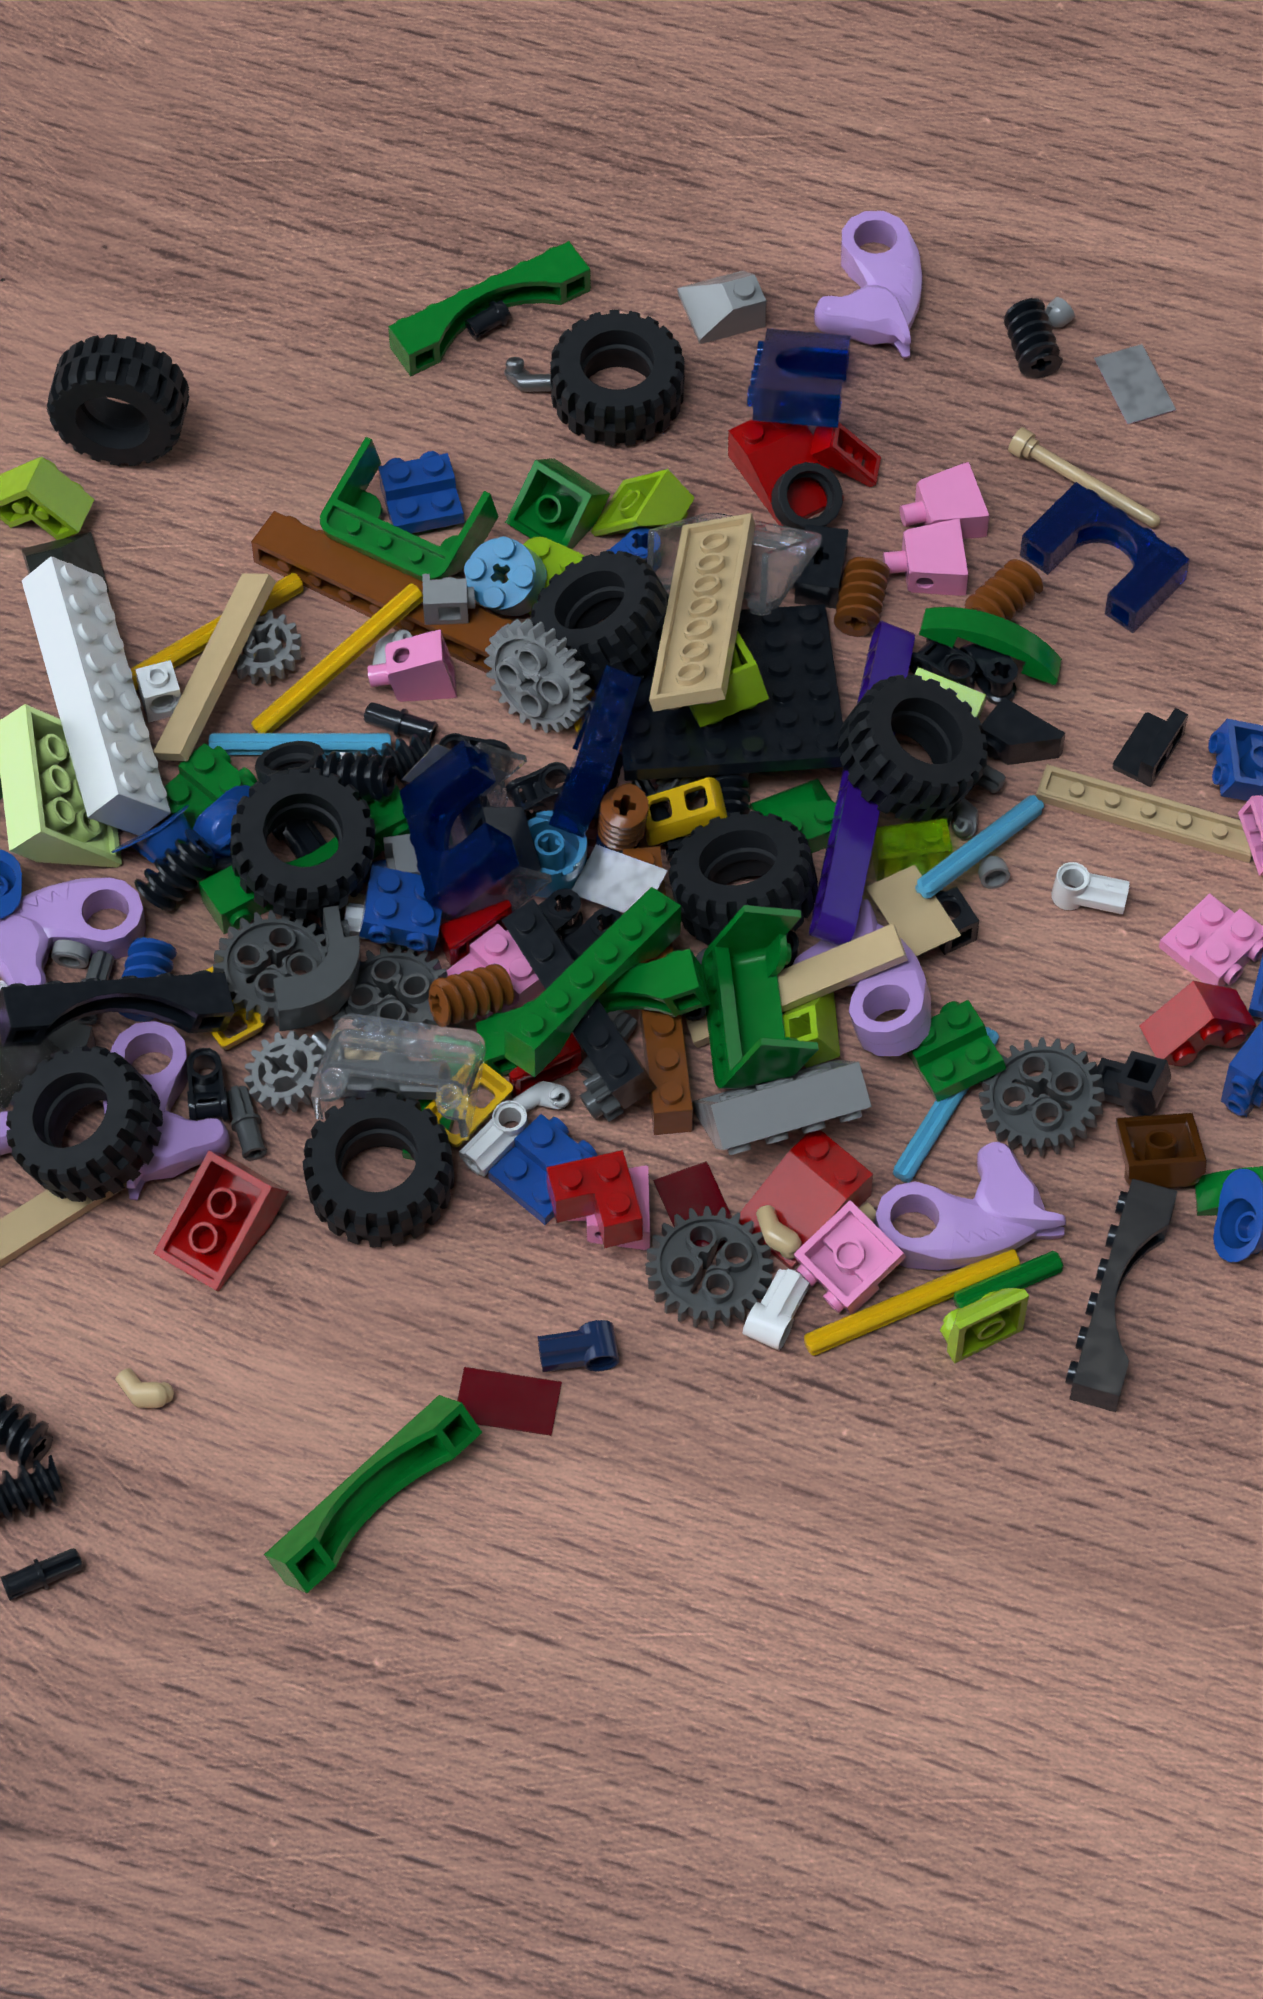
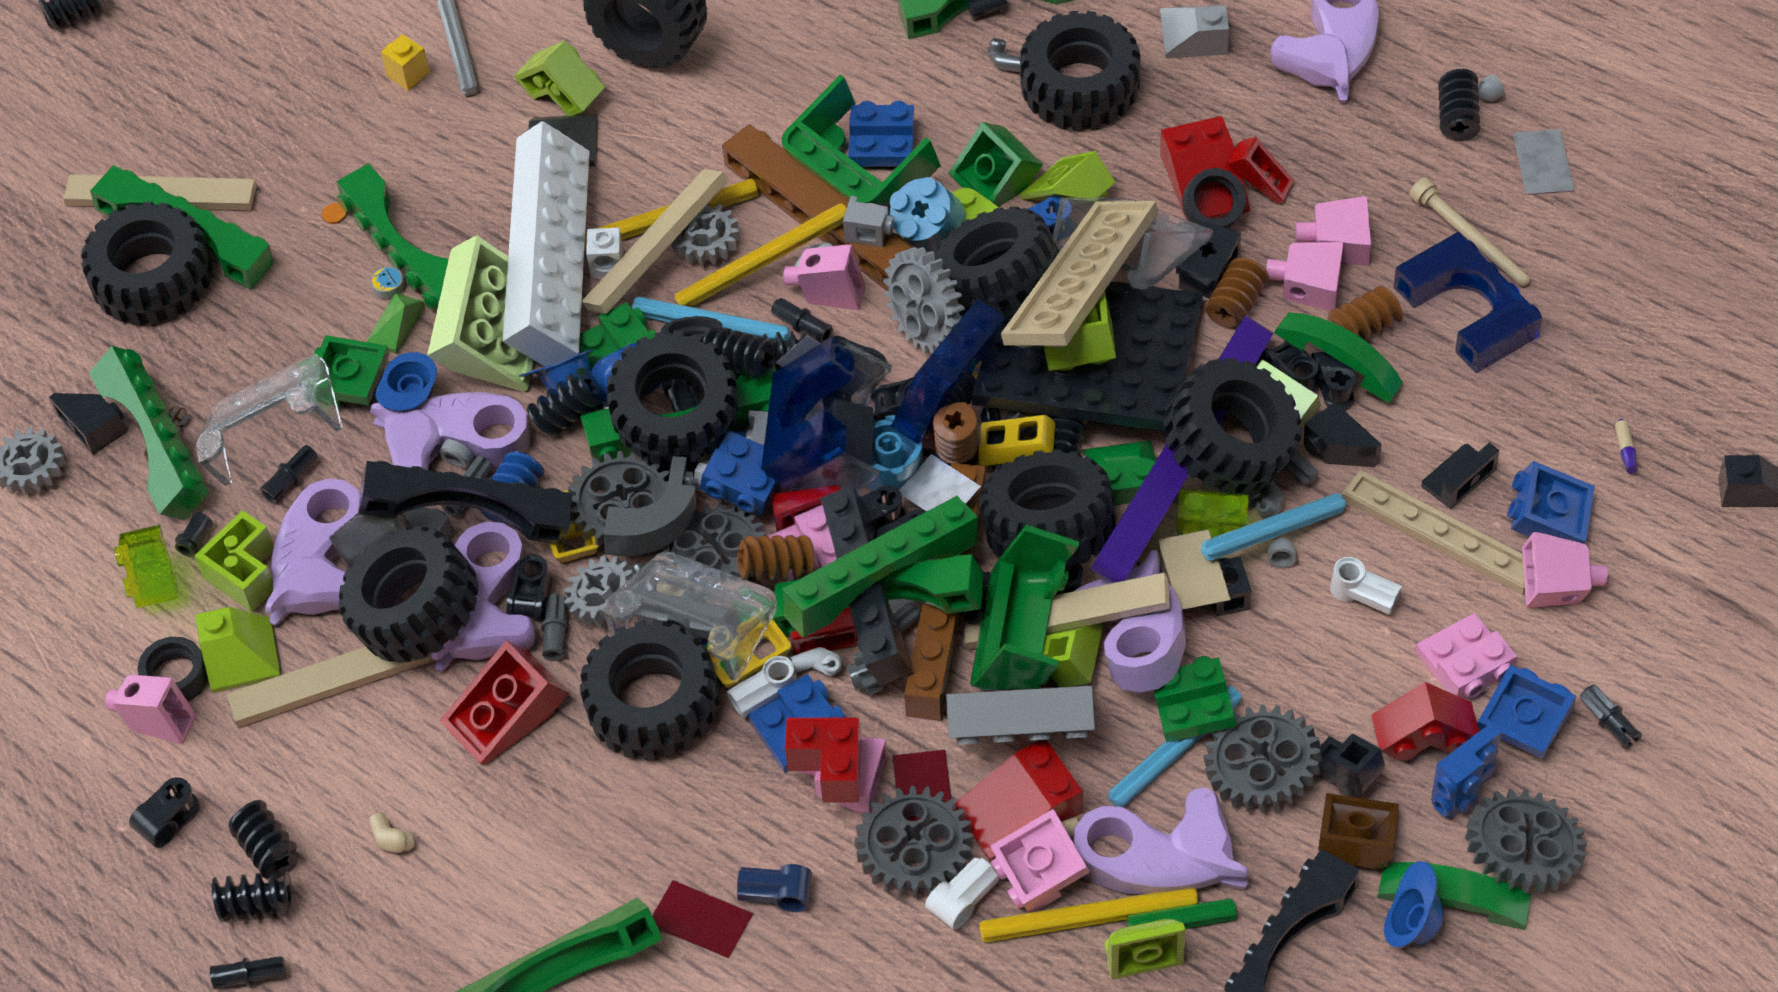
camera: 20 degrees right, 5 degrees down
(776, 1234) = (981, 826): tan arm -> none
(799, 378) = (1236, 97): clear blue arch -> none

